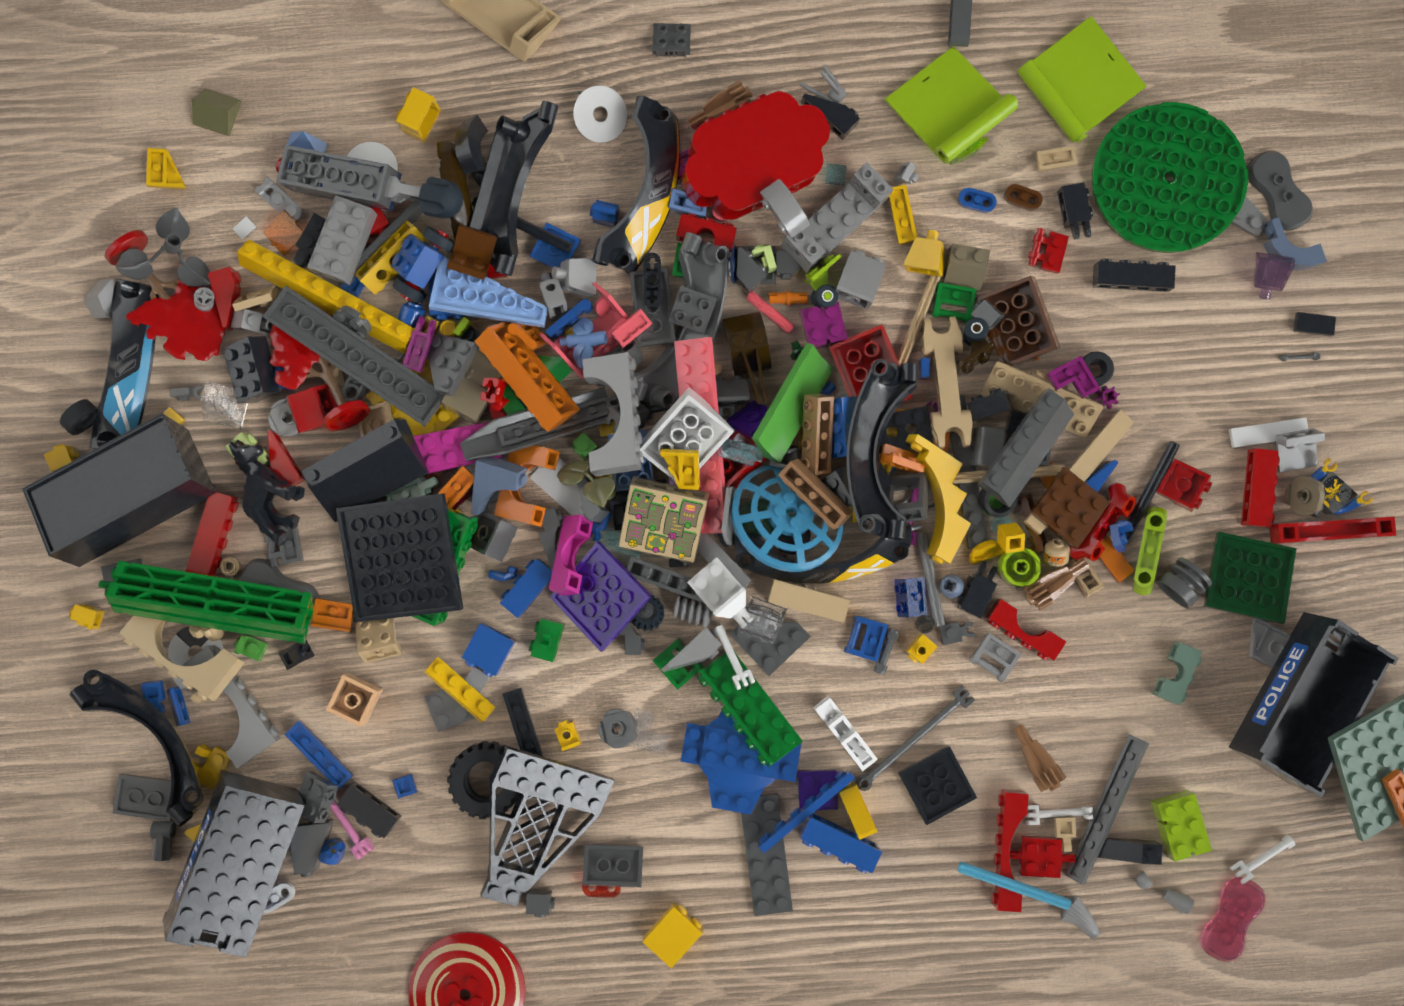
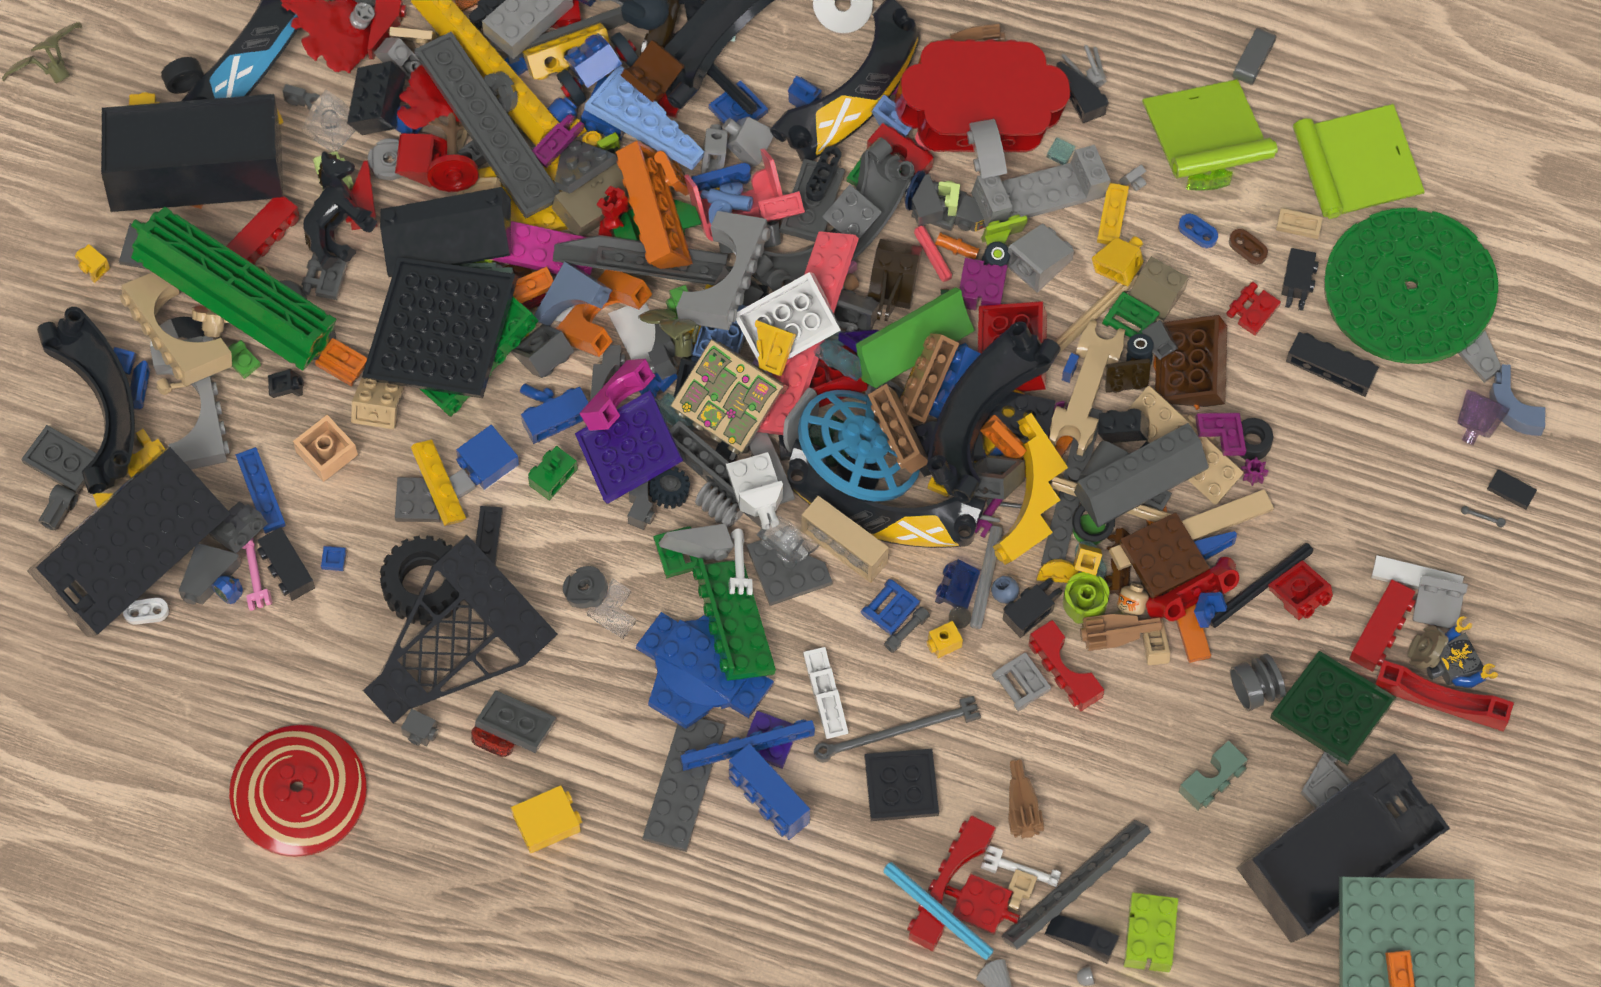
camera: 20 degrees right, 20 degrees down
(573, 740) = (529, 581): yellow brick -> none
(857, 811) = (802, 769): yellow slope -> none
(953, 632) = (987, 640): dark grey plate -> none
(1150, 551) = (1220, 655): lime plate -> none
(1273, 178) = (1530, 360): dark grey plate -> none

